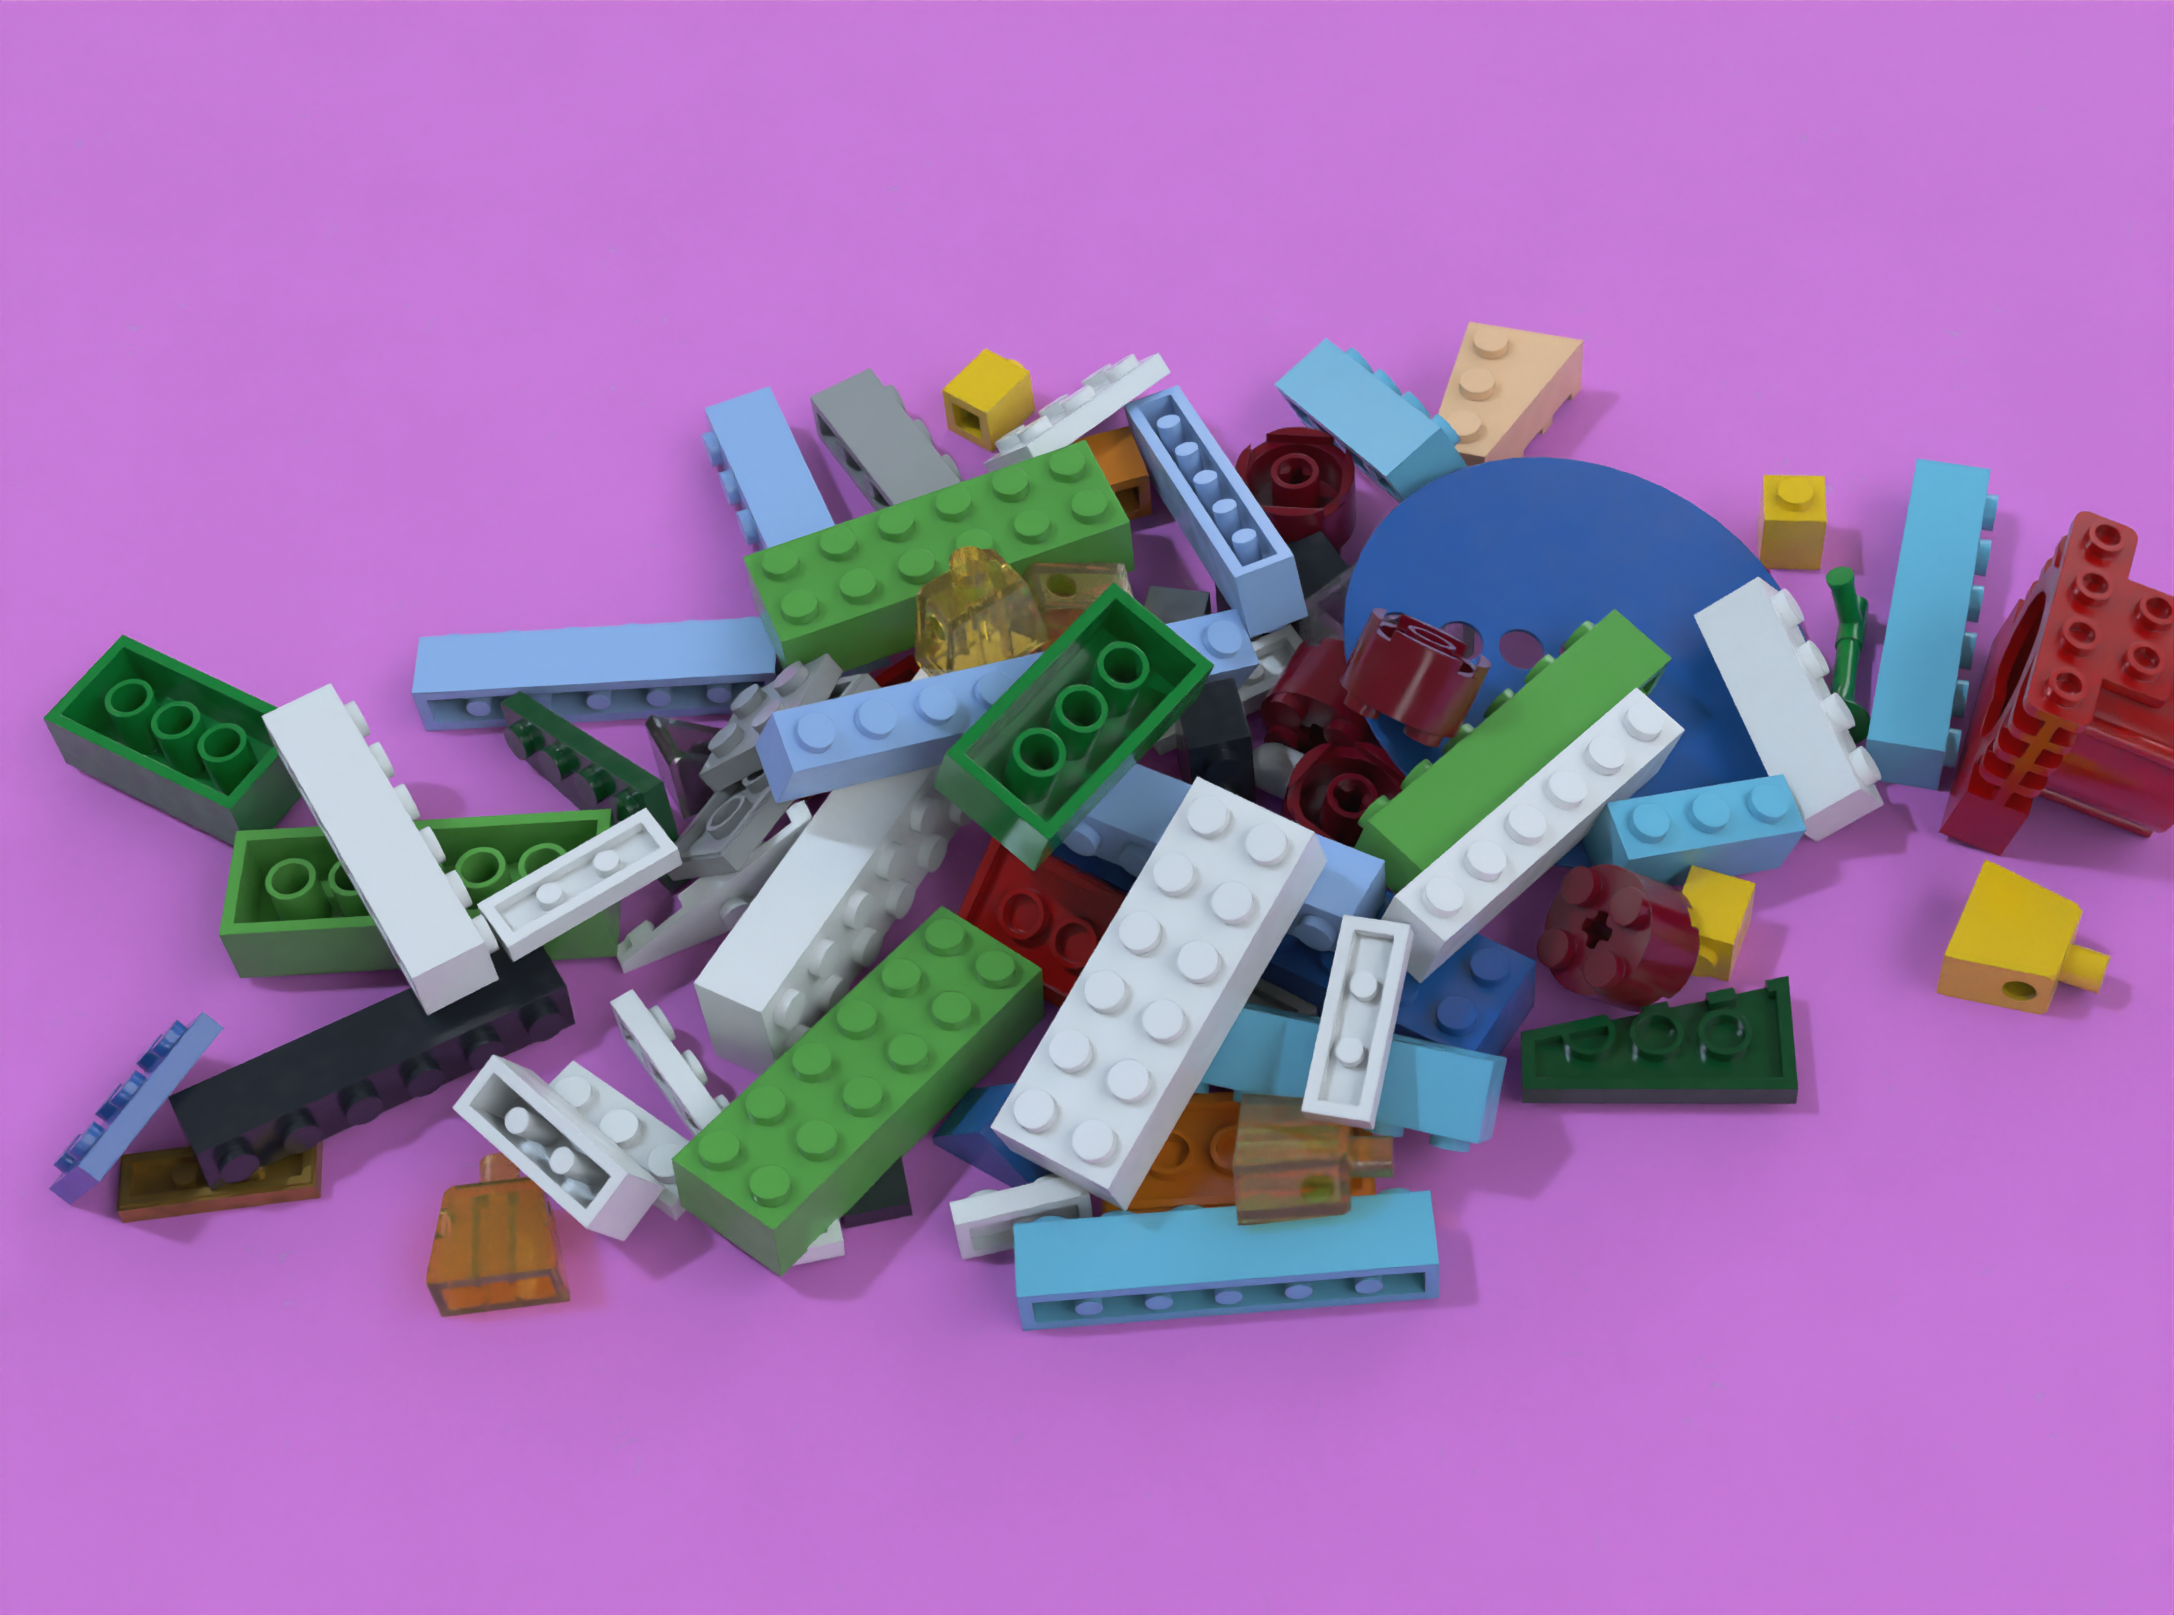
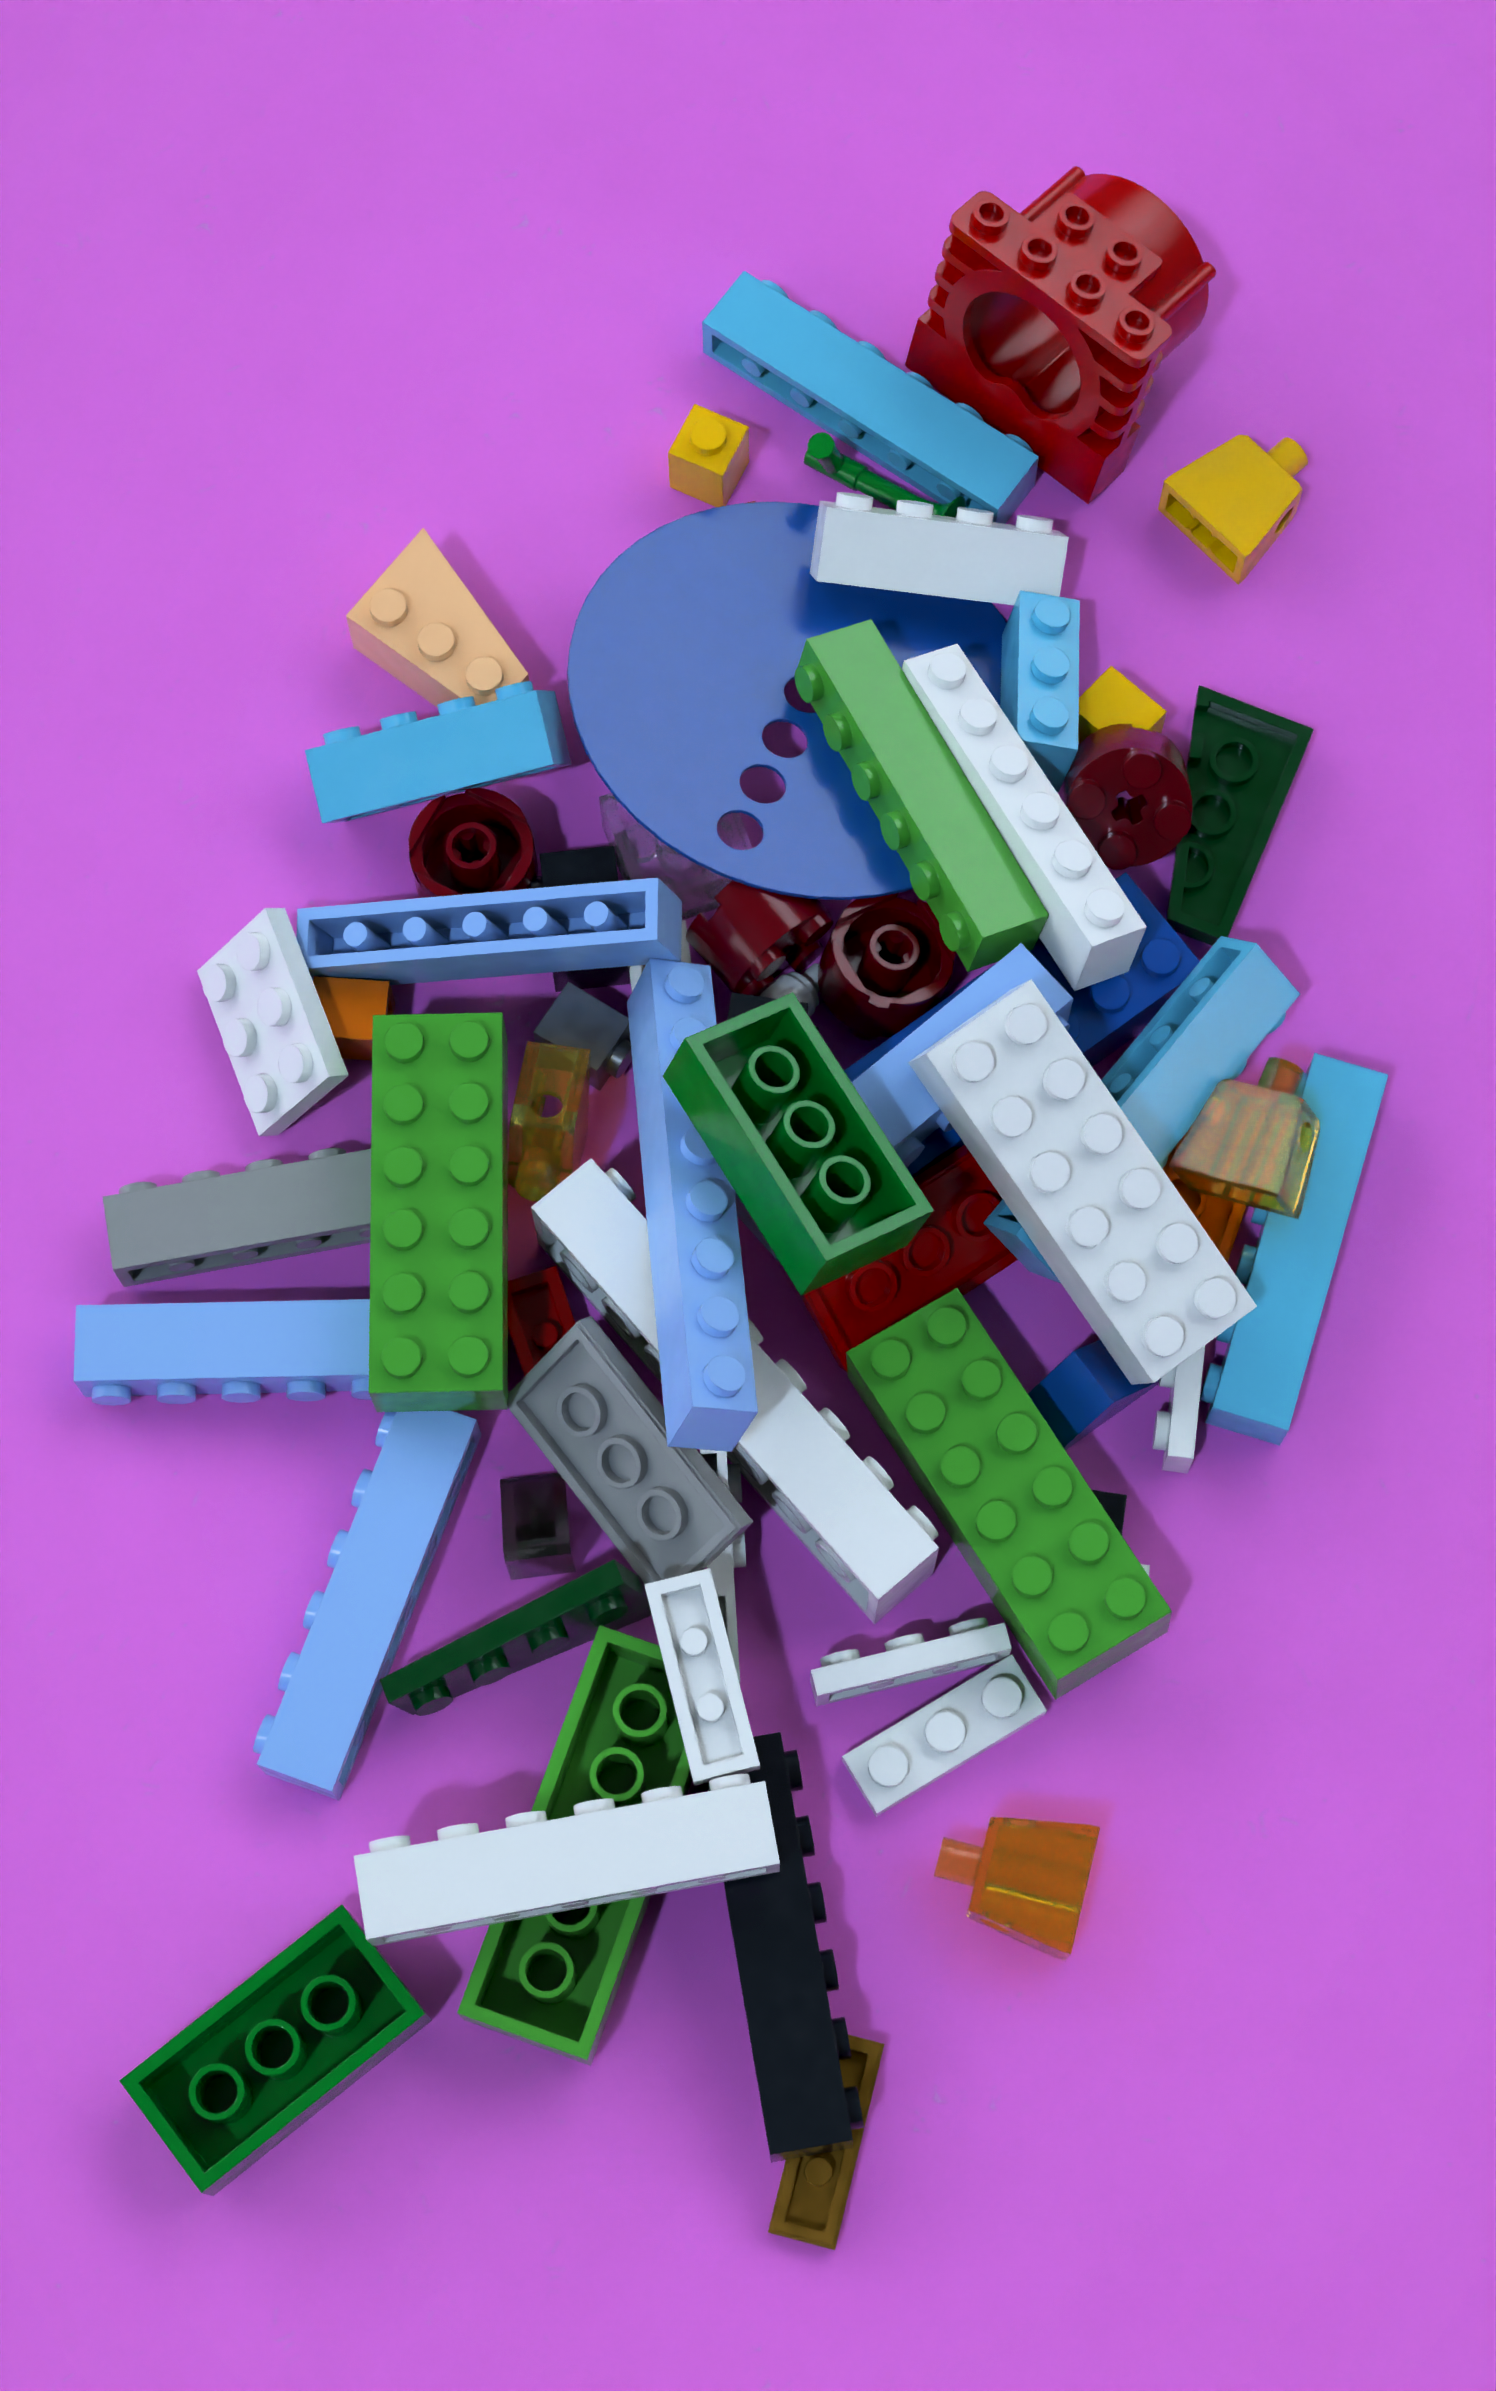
camera: 75 degrees left, 20 degrees up
(132, 1106) = (747, 2197): plate -> none
(558, 1148) = (971, 1789): white brick -> none
(734, 748) = (563, 1438): light grey plate -> none
(975, 614) = (592, 1193): clear yellow torso -> none
(988, 399) = (184, 1097): yellow brick -> none
(1358, 1022) = (1183, 1032): white plate -> none
(1412, 677) = (842, 833): dark red brick -> none

